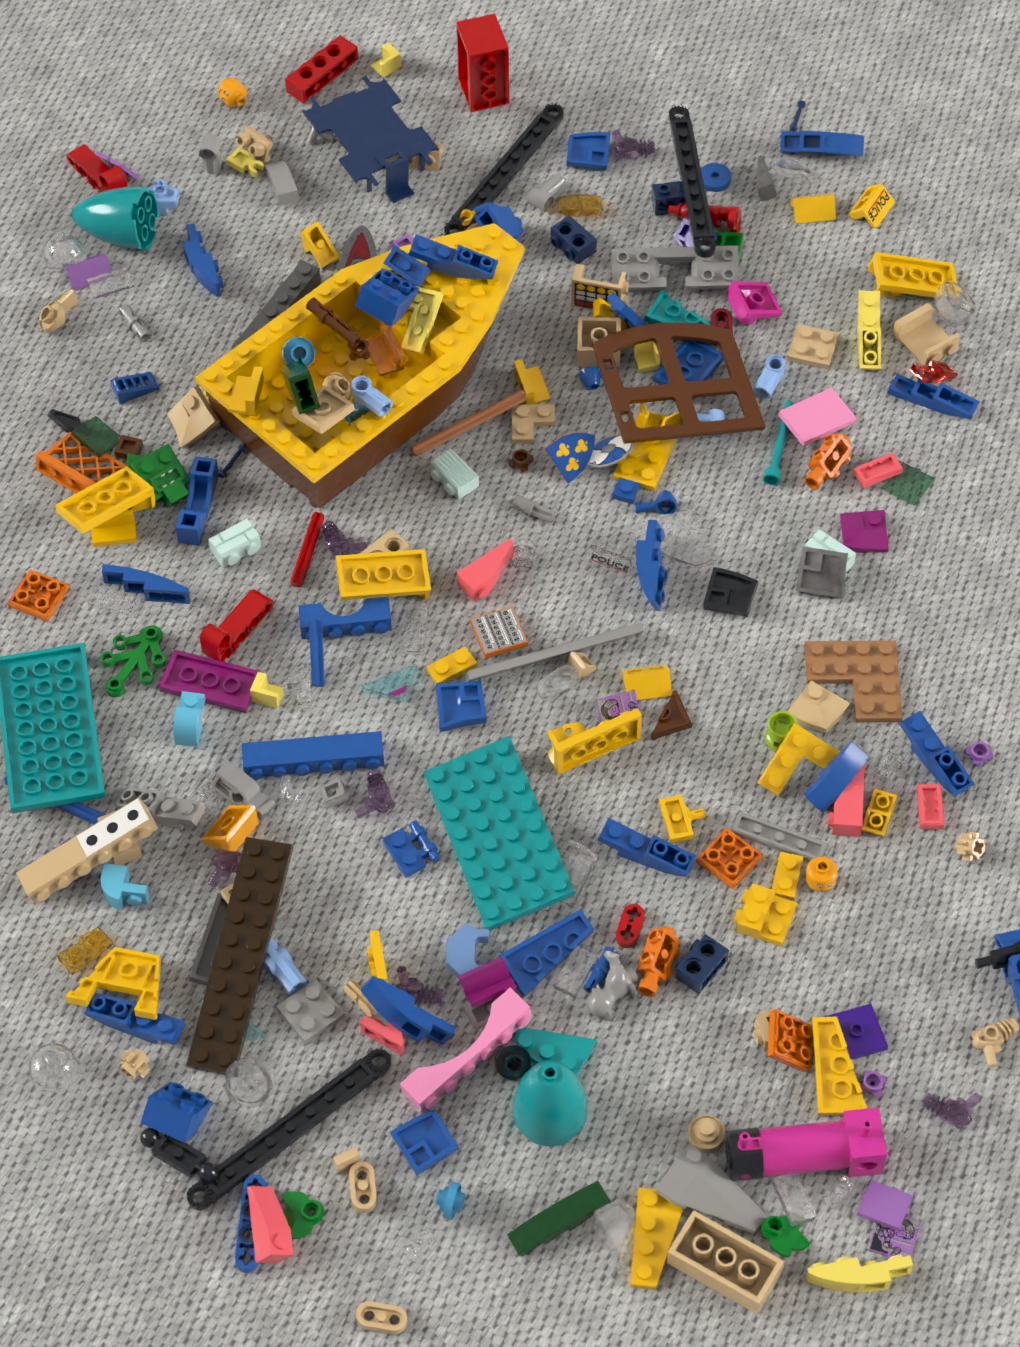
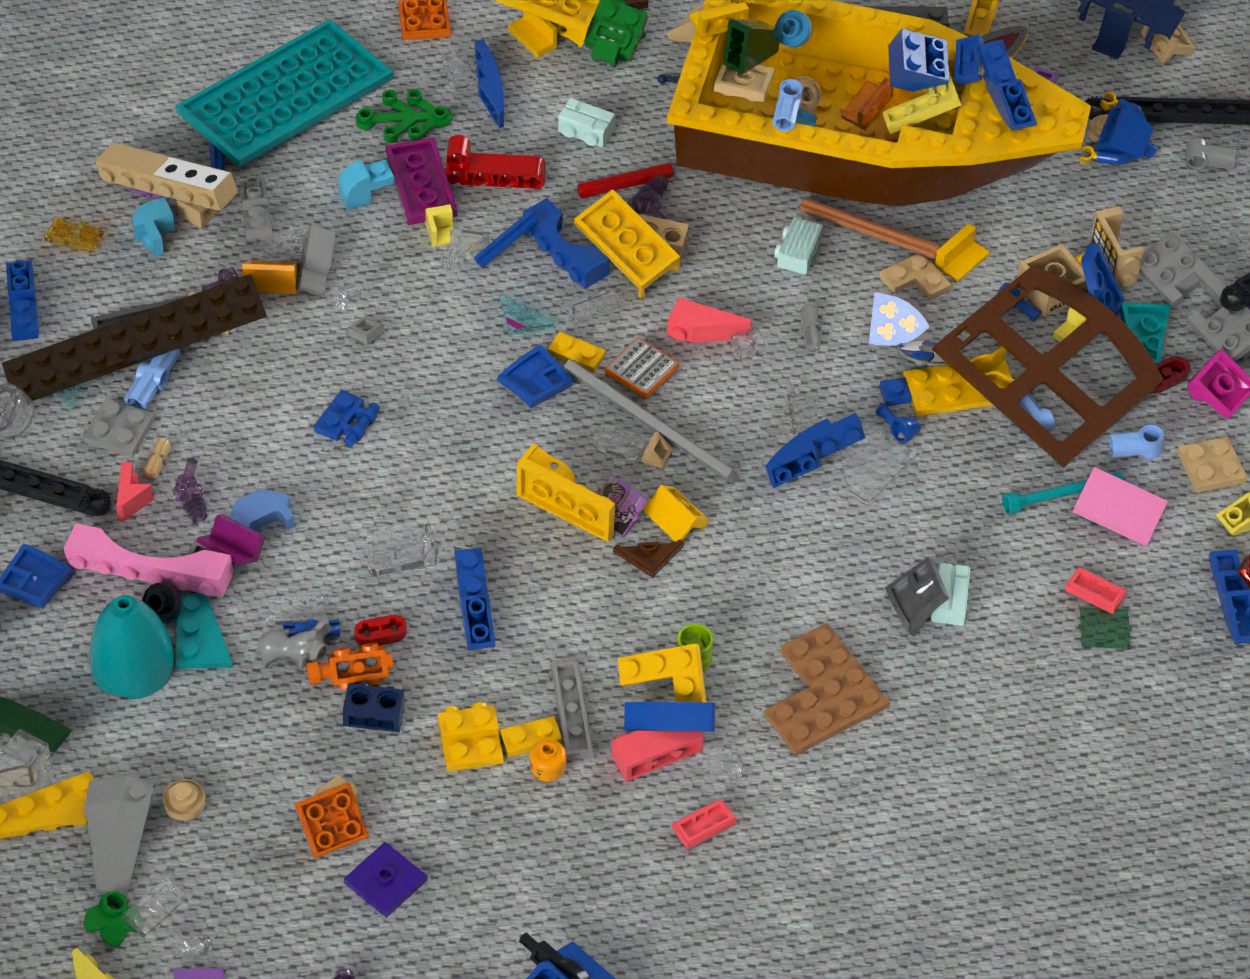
camera: 55 degrees right, 5 degrees down
(126, 973) = (65, 272): yellow wing -> none
(193, 518) = (636, 65): blue arch -> none
(313, 755) = (394, 293): blue brick -> none
(327, 317) = (859, 19): reddish brown pin -> none
(364, 353) = (851, 75): reddish brown plate -> none
(375, 956) = (193, 442): yellow plate -> none
(378, 795) = (386, 363): clear purple piece -> none
(399, 1010) = (147, 478): blue slope -> none
(499, 833) = (408, 475): teal plate -> none
(521, 455) = (861, 285): reddish brown plate -> none
(543, 952) = (300, 573): blue wing -> none
(573, 240) = (1167, 203): dark blue brick -> none
(575, 203) = (1221, 189): clear yellow slope -> none
(678, 818) = (531, 612): yellow plate -> none
(696, 362) = (1098, 371): blue plate -> none
(725, 1262) = (44, 876): tan brick -> none
(729, 858) = (518, 678): orange tile -> none
(730, 592) = (837, 532): black plate -> none
(818, 708) = (753, 672): tan plate -> none
(828, 459) = (1073, 538): orange brick -> none
(834, 1071) = (321, 877): yellow wing -> none
(847, 1144) = (243, 922): dark pink piece -> none
(865, 531) = (1007, 614): magenta plate -> none
(877, 1078) = (334, 912): medium lavender plate -> none
(879, 812) = (659, 784): yellow slope -> none
(935, 756) = (770, 798): blue slope -> none
(970, 846) = (671, 874): tan gear -> none
(980, 747) = (805, 833): medium lavender plate -> none

